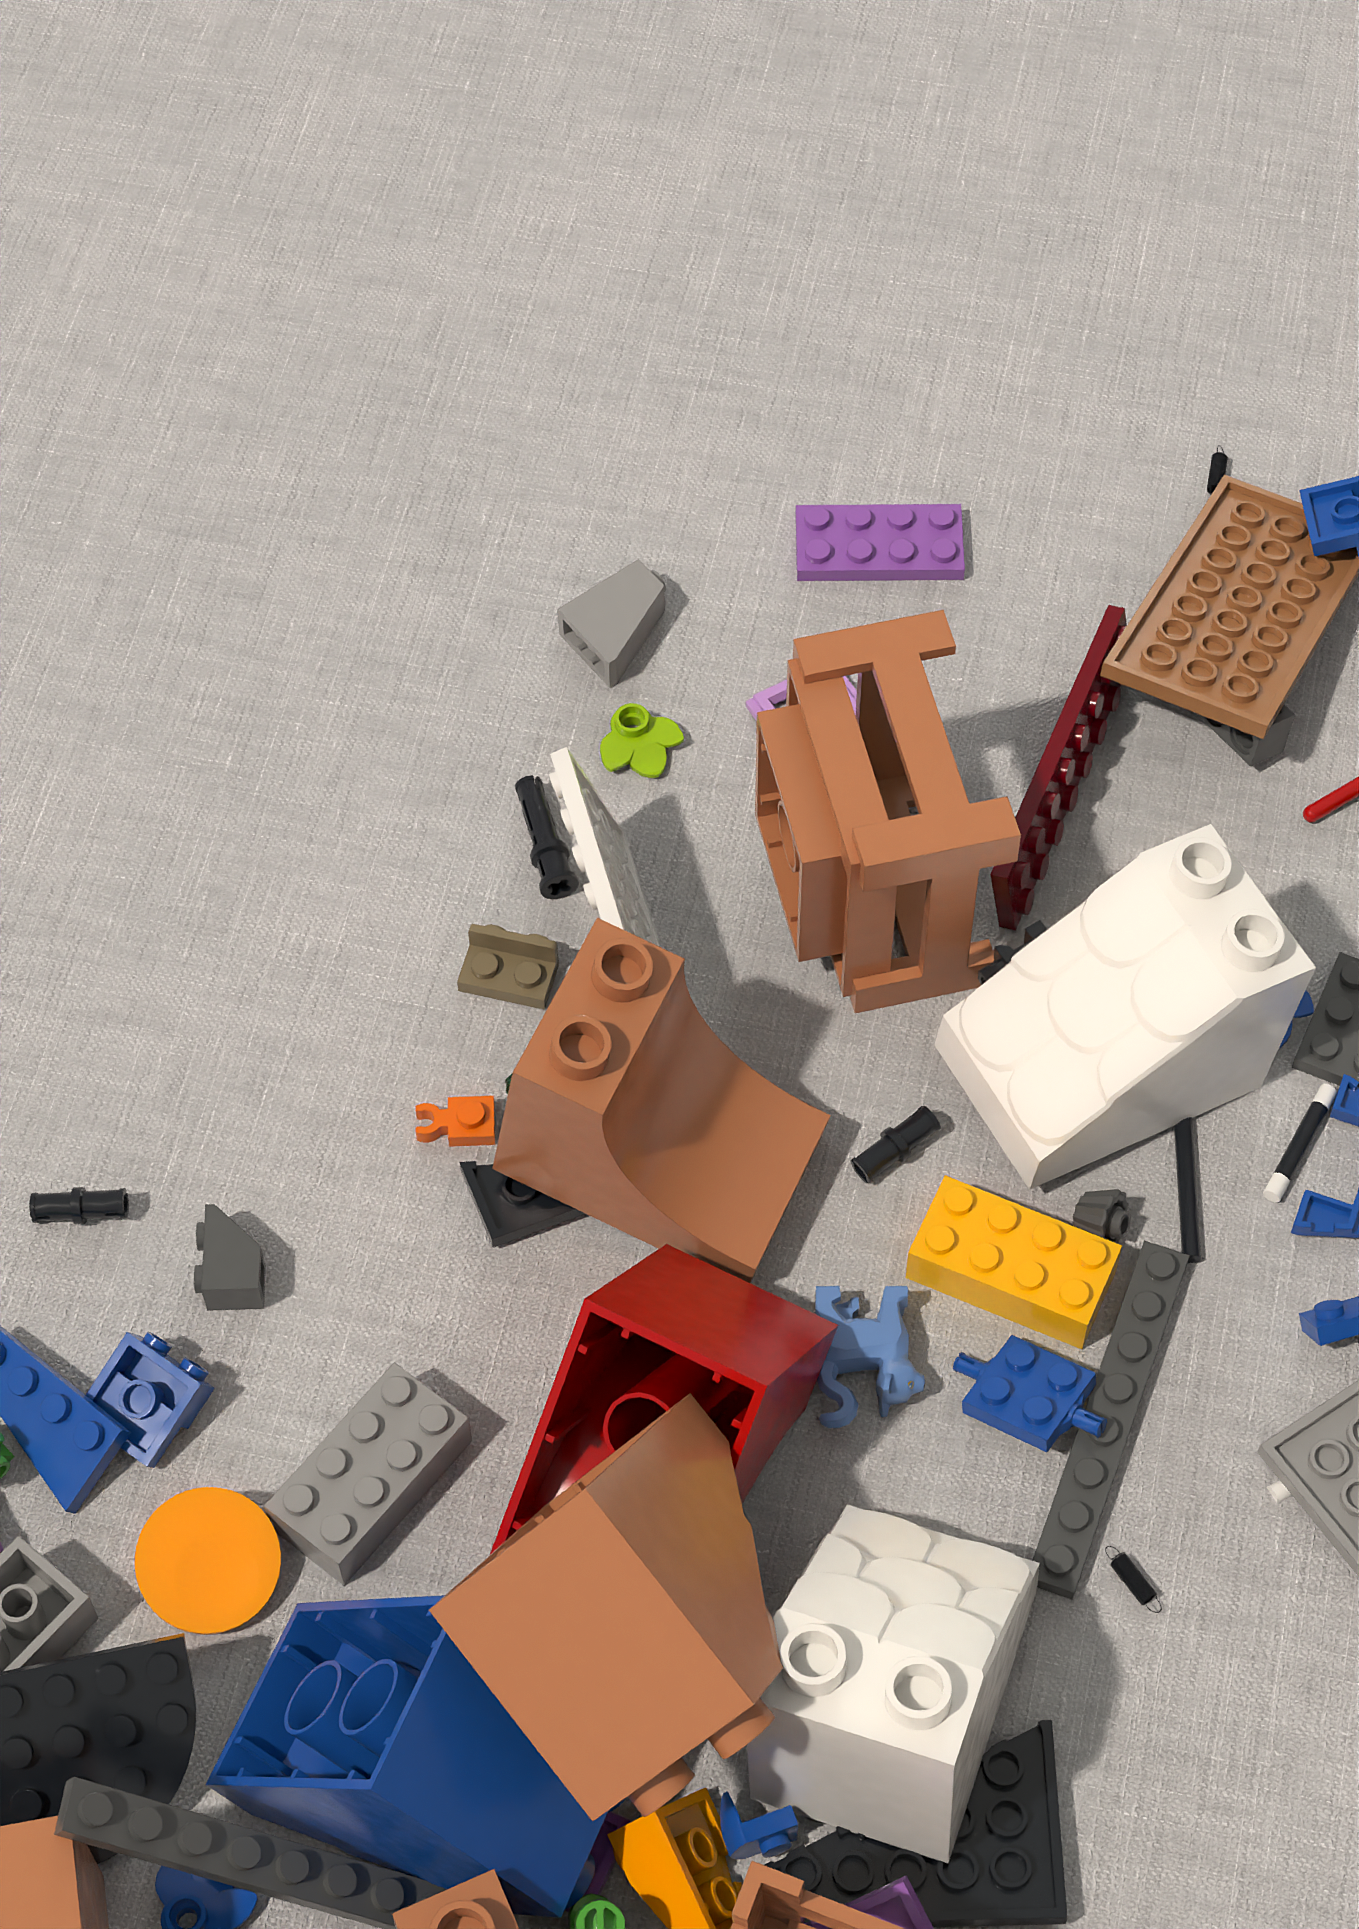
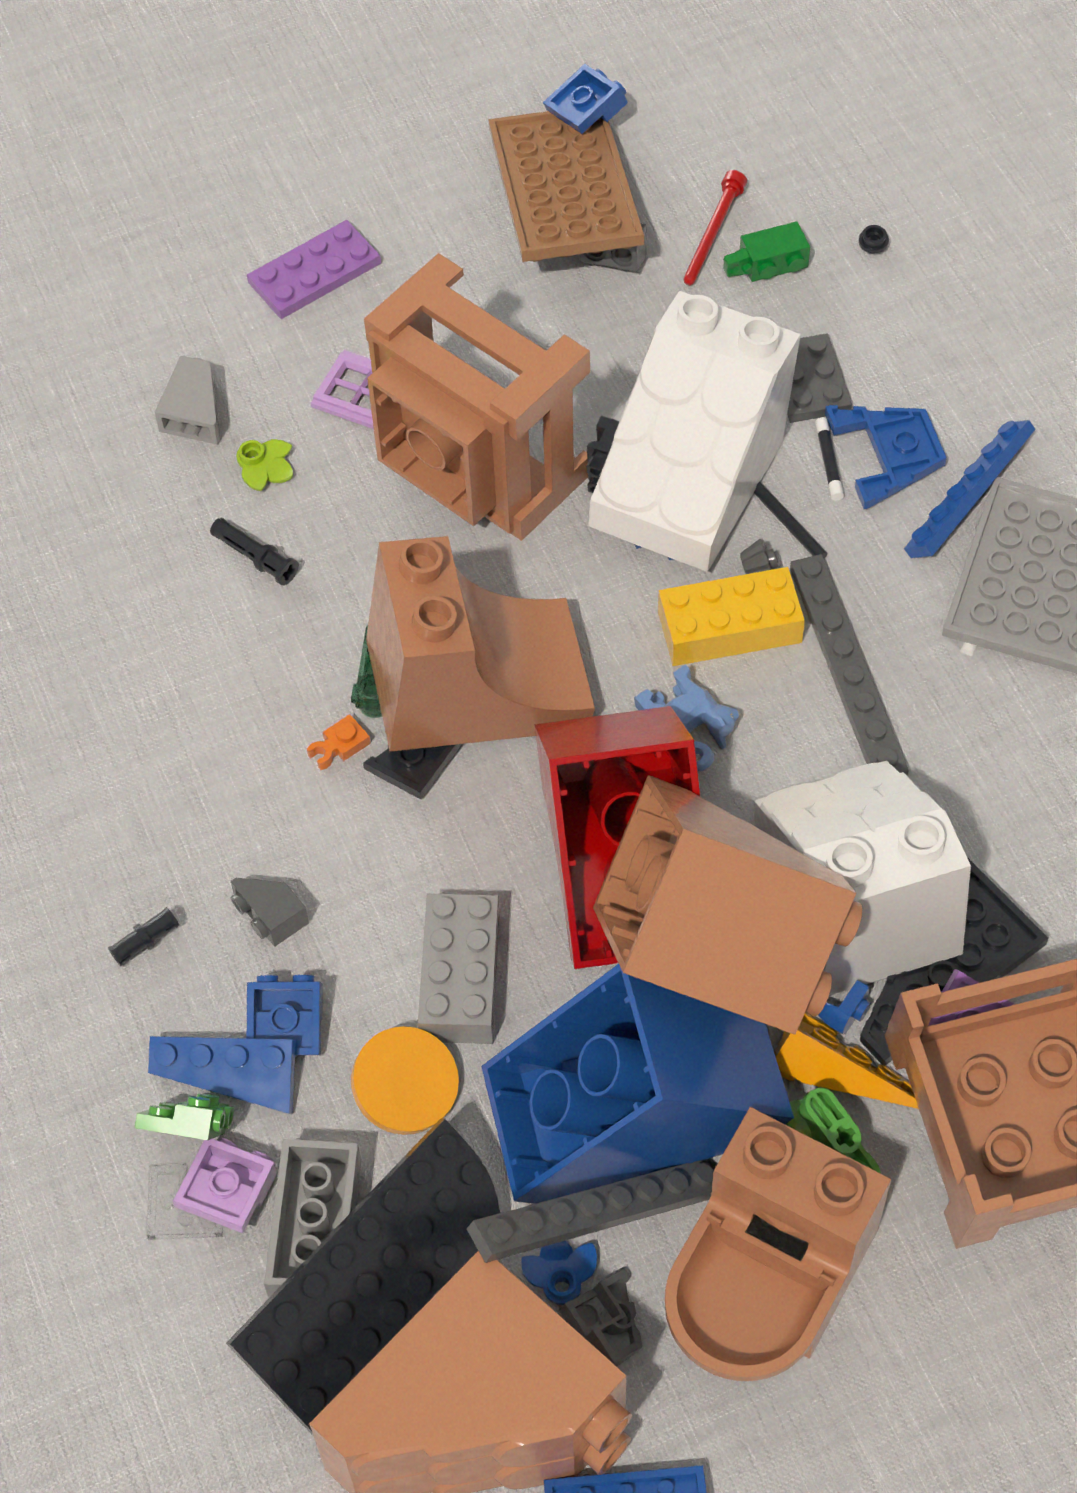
camera: 35 degrees left, 0 degrees up
(509, 966) = (295, 635): dark tan bracket -> none
(601, 851) = (317, 530): white plate -> none
(895, 1144) = (609, 595): black pin -> none
(1029, 1393) = (798, 680): blue plate -> none
(1058, 774) = (524, 284): dark red plate -> none
(1133, 1578) = (931, 743): black piece -> none
(1217, 470) = (480, 121): black piece -> none

